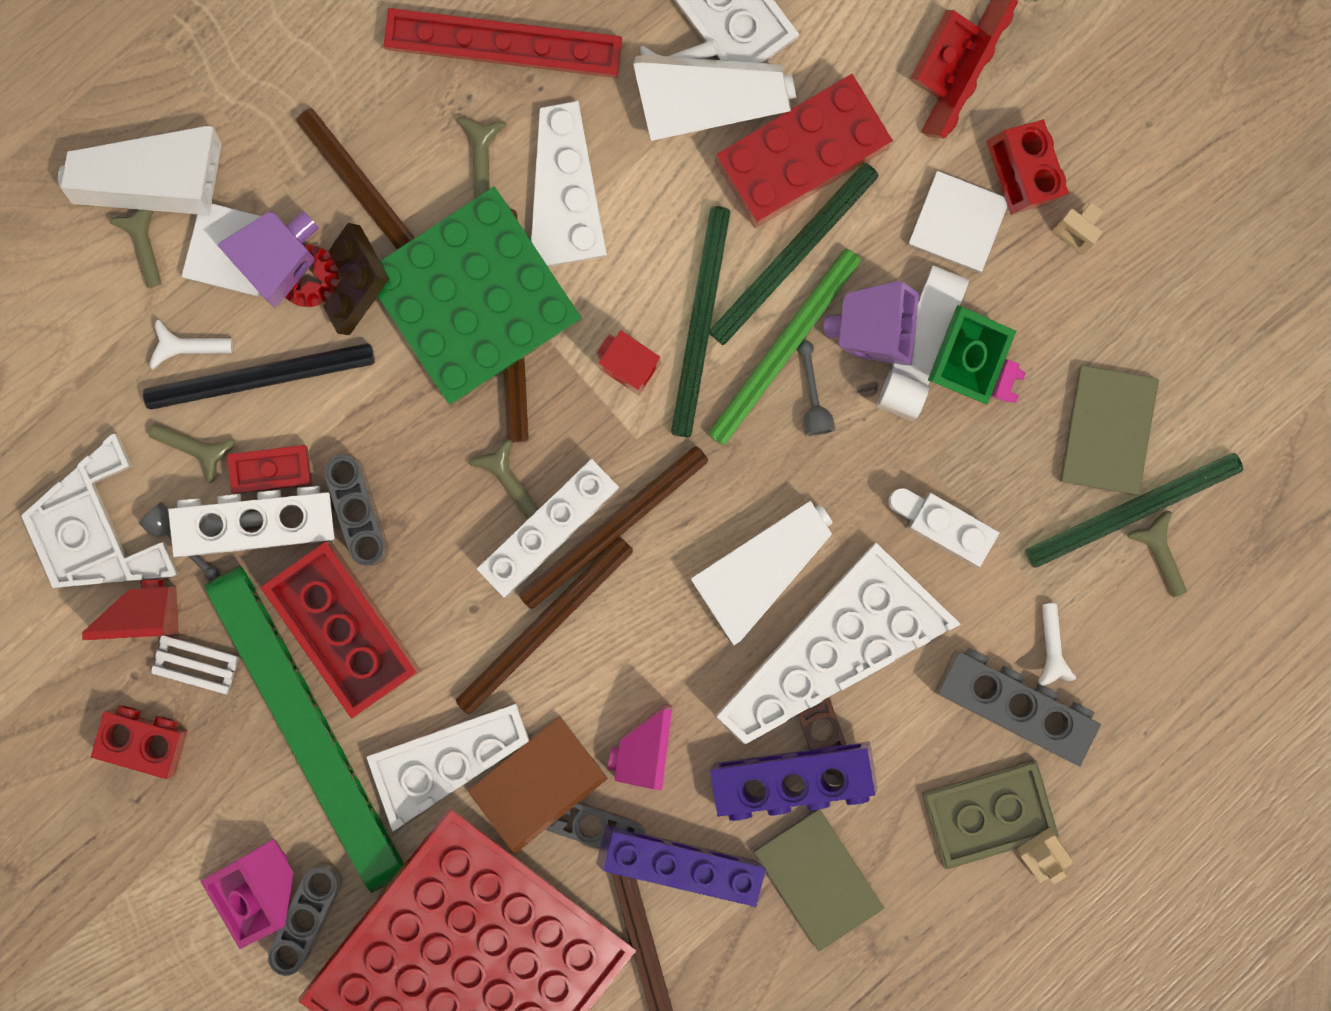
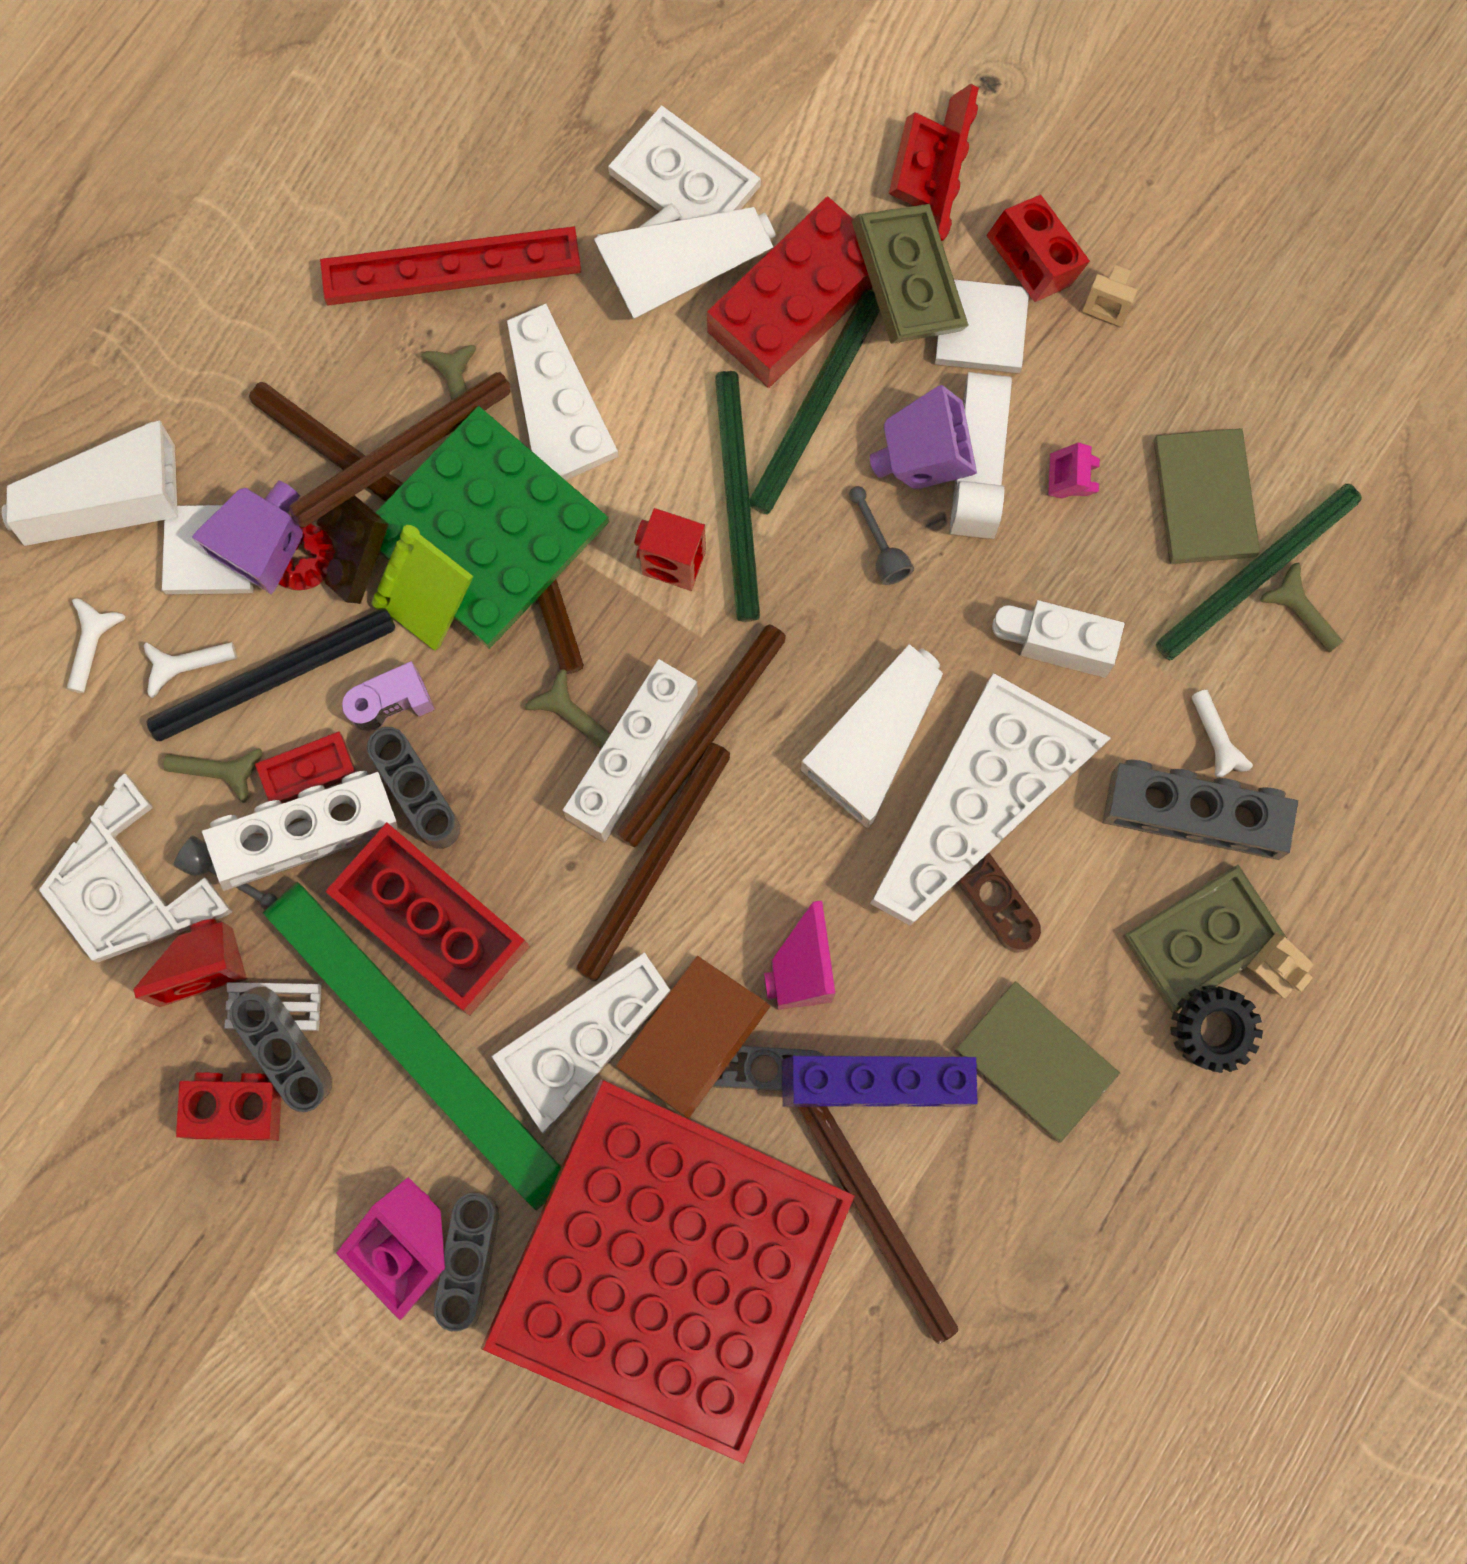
camera: 10 degrees left, 10 degrees down
(115, 292) = (92, 626): none -> white piece
(138, 228) = (103, 552): olive piece -> none
(190, 723) = (281, 1072): none -> dark grey beam
(339, 425) = (386, 695): none -> lavender leg
(404, 340) = (421, 587): none -> lime piece
(416, 209) = (398, 450): none -> reddish brown axle
(784, 346) = (834, 499): bright green axle -> none
(852, 760) = (908, 970): dark purple brick -> none
(905, 165) = (909, 273): none -> olive tile
(972, 355) = (1038, 443): green slope -> none
(981, 915) = (1242, 1032): none -> black tyre

